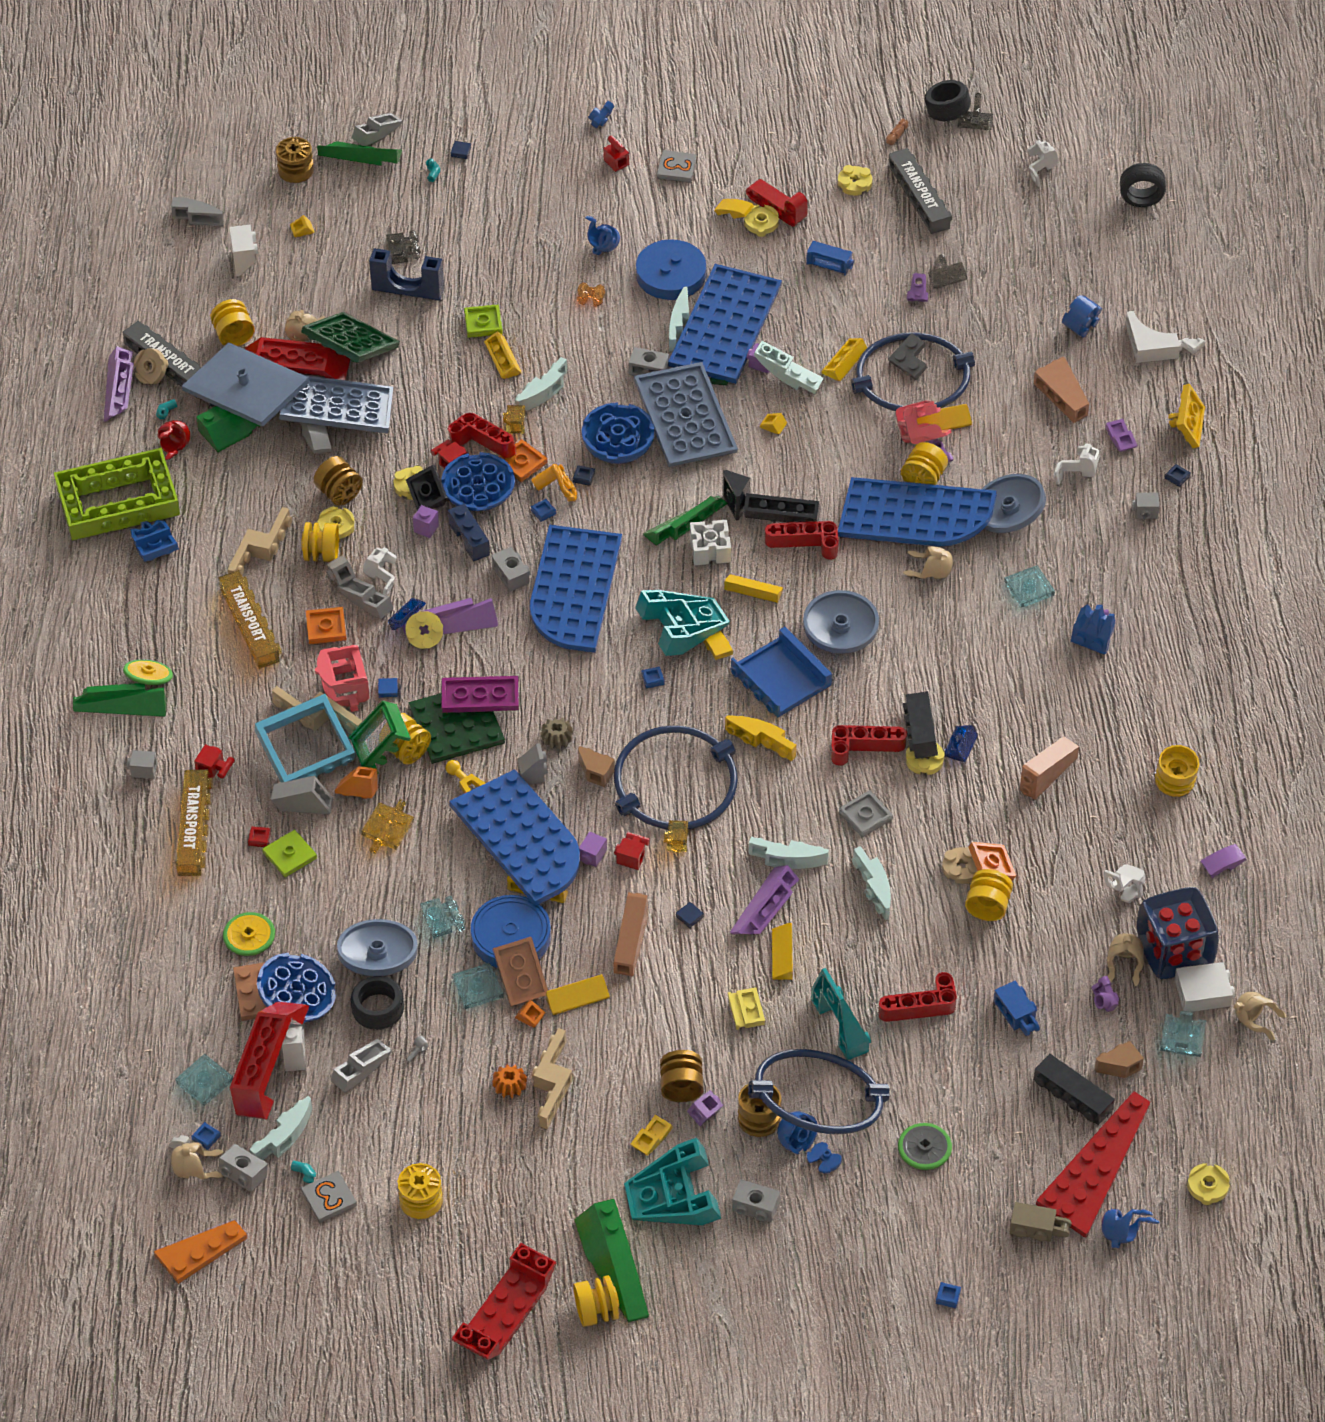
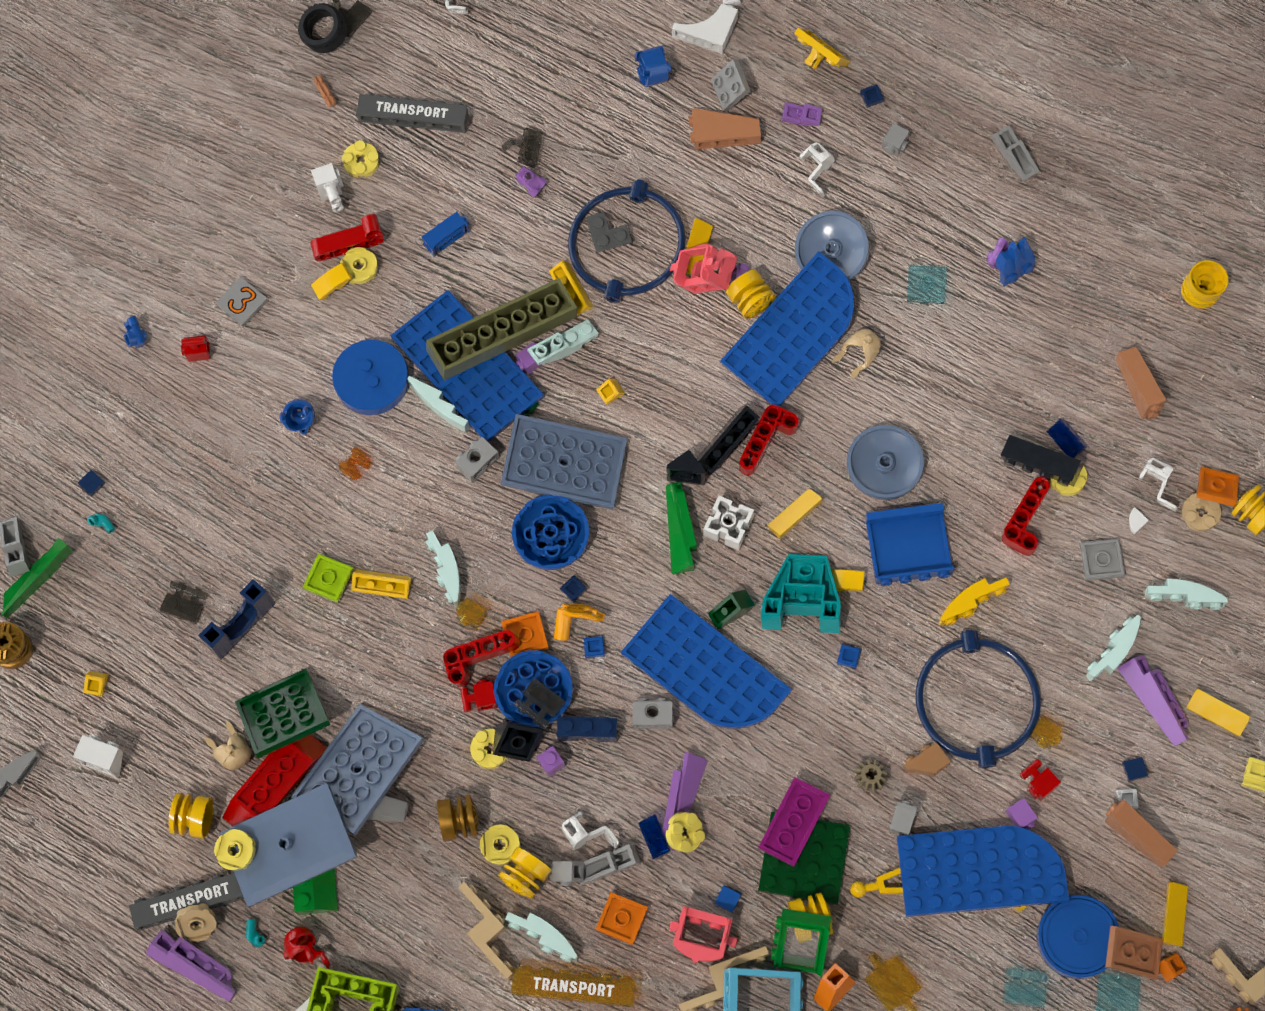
camera: 55 degrees left, 20 degrees up
(215, 360) = (245, 845): none -> light yellow plate
(280, 583) = (551, 938): none -> light aqua slope
(471, 488) = (542, 697): none -> clear smoke plate
(638, 579) = (731, 608): none -> dark green slope
(661, 921) = (1129, 796): none -> white tile
(769, 321) = (501, 329): none -> olive brick
(813, 165) = (329, 185): none -> white brick
(919, 822) = (1136, 520): none -> white tile
(975, 818) = (1161, 474): none -> white piece
(1105, 372) = (730, 85): none -> light grey plate
(1201, 591) = (1014, 153): none -> light grey slope

